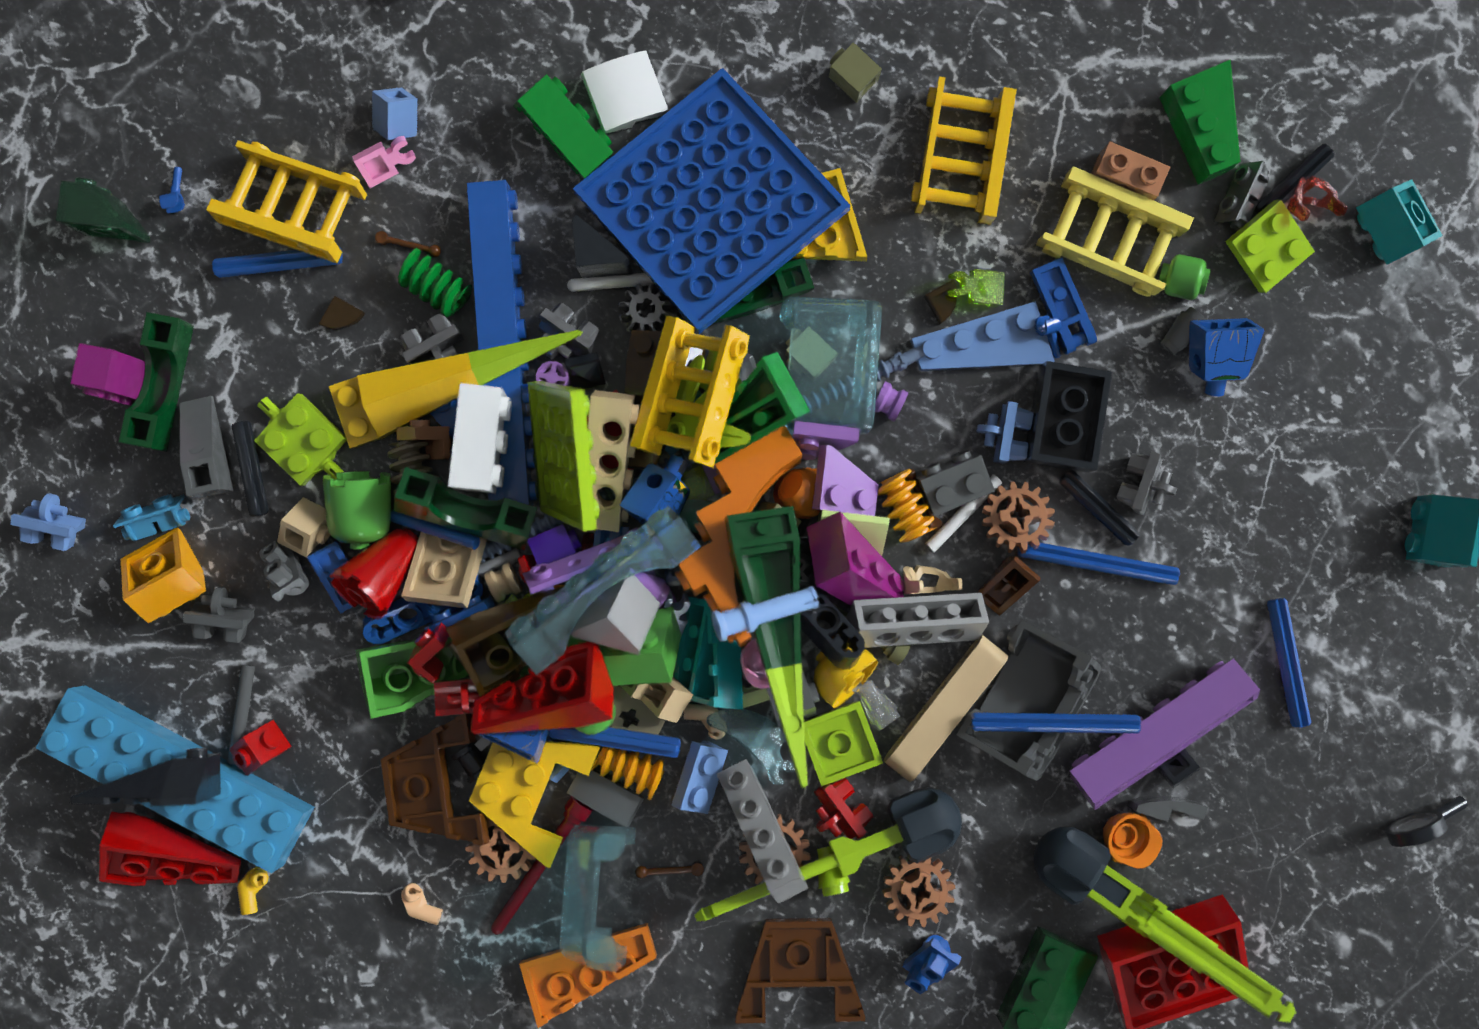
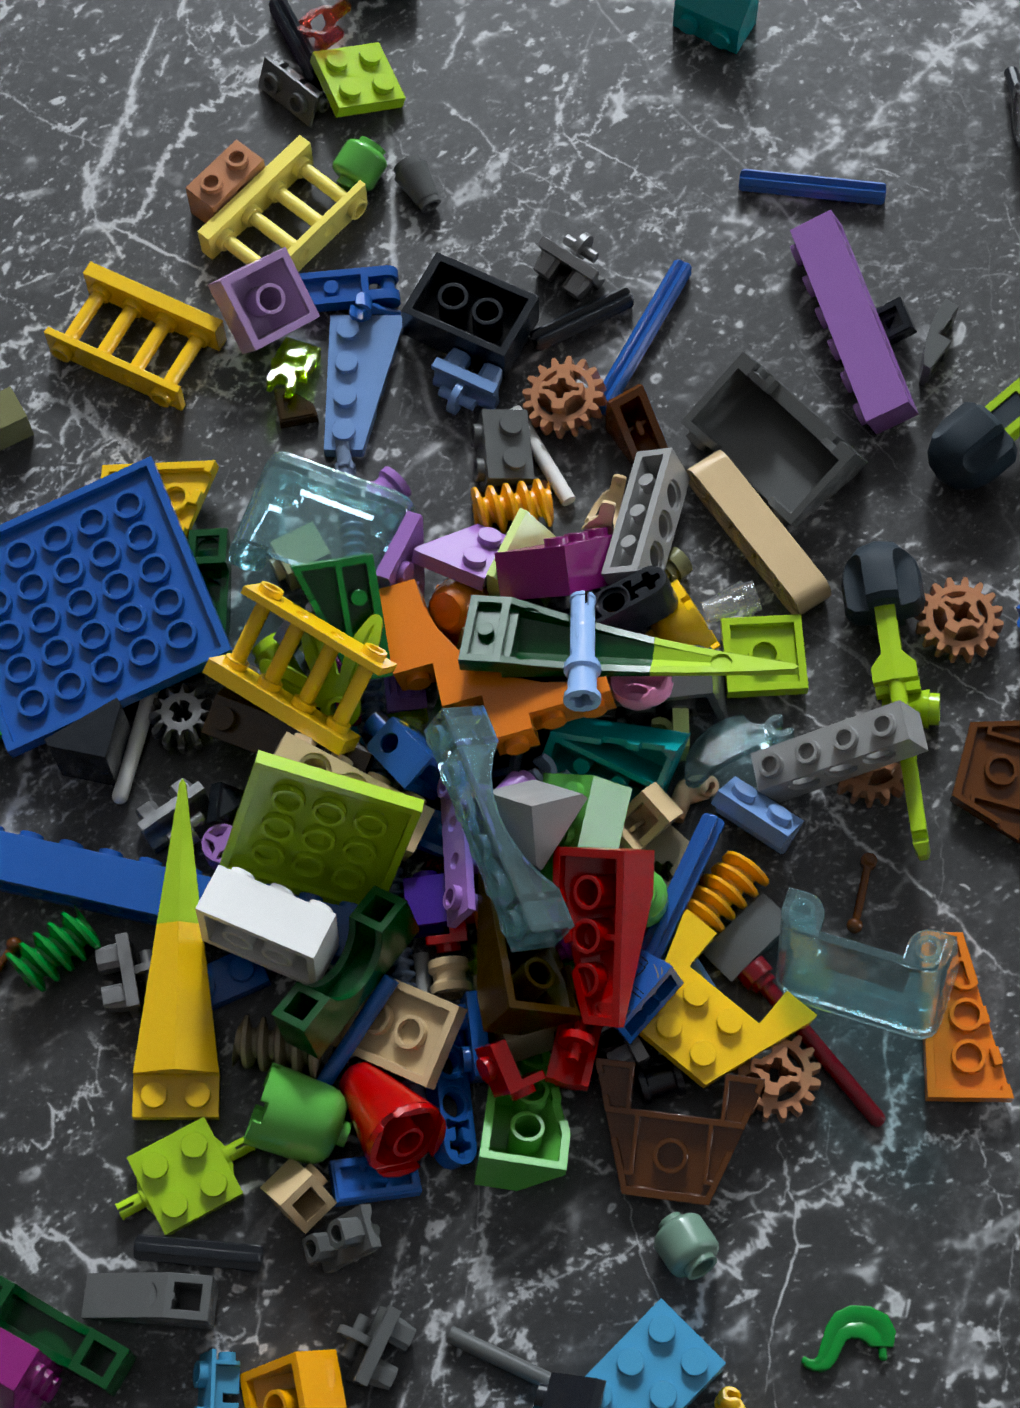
camera: 70 degrees left, 20 degrees down
(259, 747) = (561, 1343): red bracket -> none
(340, 315) = (48, 1080): dark brown tile -> none
(342, 949) = (857, 1323): none -> green piece
(356, 817) = (686, 1245): none -> sand green head
(417, 906) = (822, 1208): light nougat arm -> none
(437, 437) = (241, 1001): nougat bracket -> none
(837, 815) = (842, 678): red hips -> none
(1023, 244) = (263, 301): none -> lavender slope
(1056, 722) = (806, 416): blue axle -> none
(1132, 839) = (960, 382): orange hat -> none
(1205, 121) = (201, 100): green wedge -> none
(1222, 351) = (453, 149): blue torso -> none

